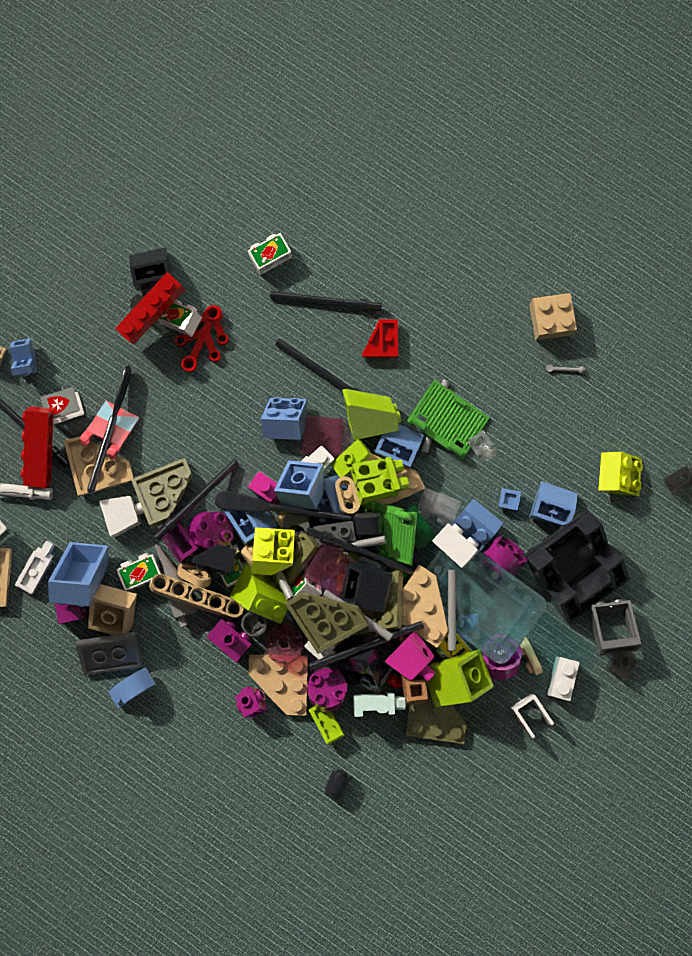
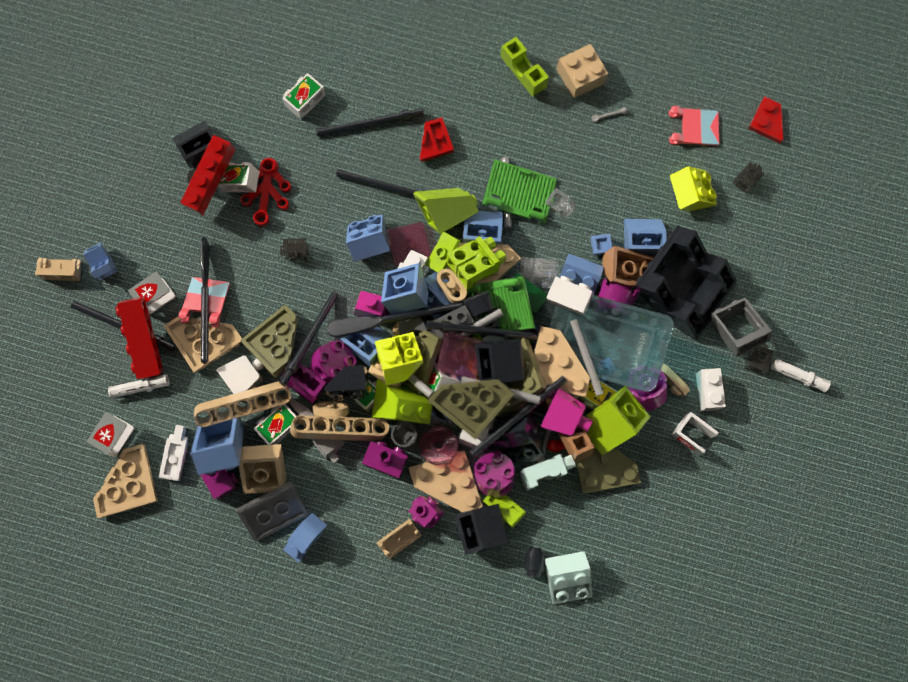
camera: 20 degrees left, 5 degrees down
(105, 548) = (235, 411): none -> tan beam
(211, 406) = (294, 249): none -> clear smoke brick
(218, 718) = (399, 539): none -> tan hinge
(297, 737) = (482, 529): none -> black slope
(363, 809) = (568, 577): none -> light aqua slope
(498, 303) = (516, 58): none -> lime arch
(523, 530) = (624, 265): none -> medium nougat wedge
(649, 411) = (698, 126): none -> coral flag
(664, 700) = (805, 377): none -> white pin

